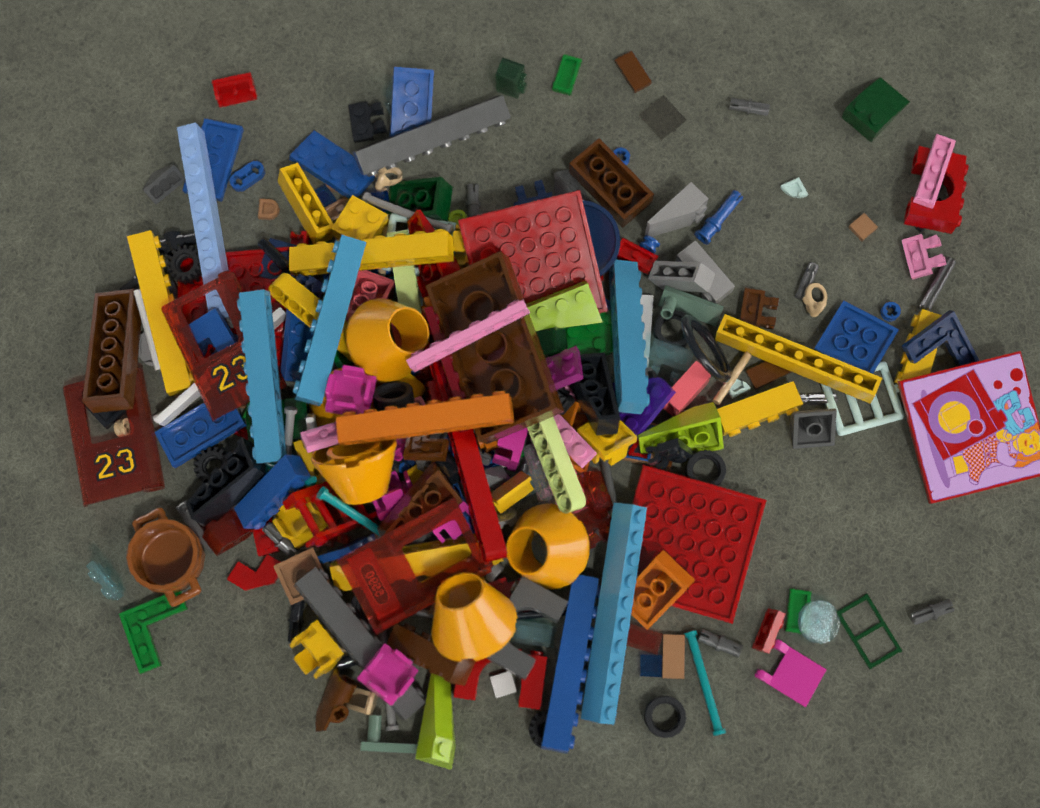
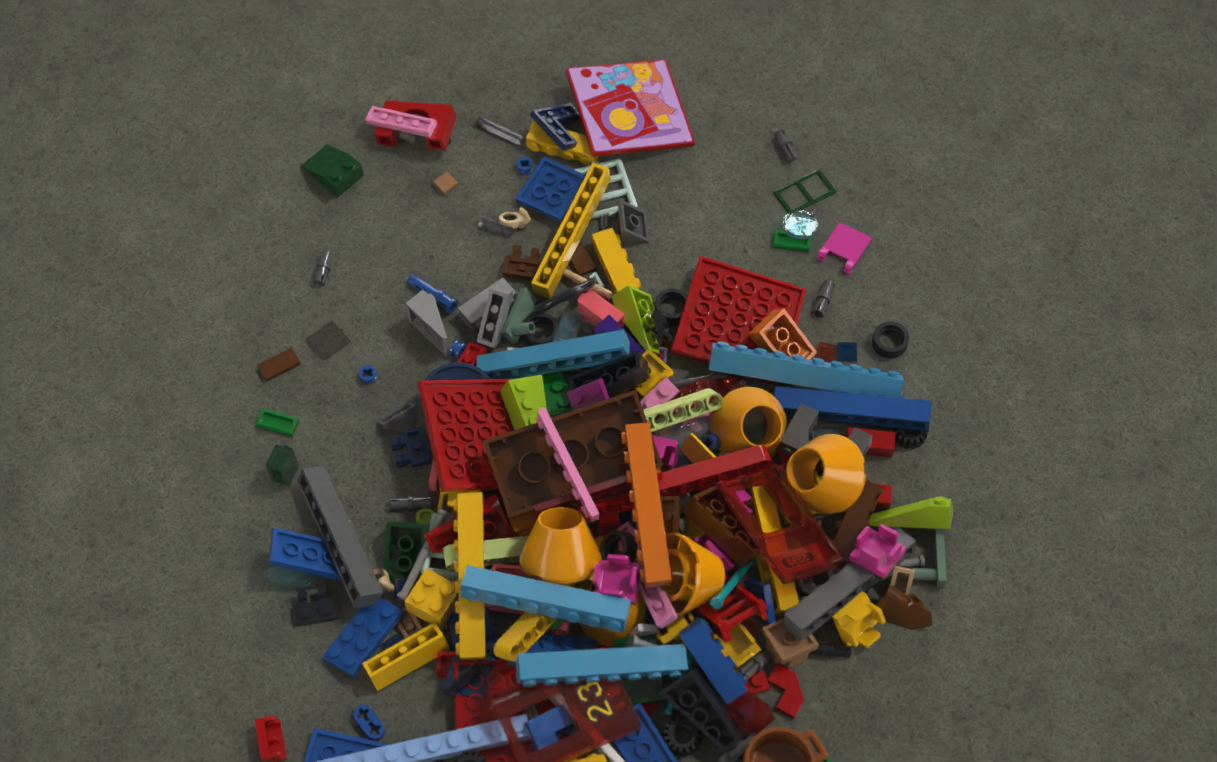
camera: 95 degrees left, 15 degrees down
(268, 209) = (407, 700): medium nougat tile -> none
(503, 684) = (874, 469): white tile -> none
(526, 502) = (715, 441): none -> blue bush
(611, 182) = (395, 379): reddish brown brick -> none
(673, 656) = (837, 333): medium nougat tile -> none
(691, 636) = (858, 310): teal bar -> none
(768, 631) = (811, 260): red plate -> none
(794, 188) = (406, 234): light aqua tile -> none
(917, 256) = (476, 142): bright pink plate -> none

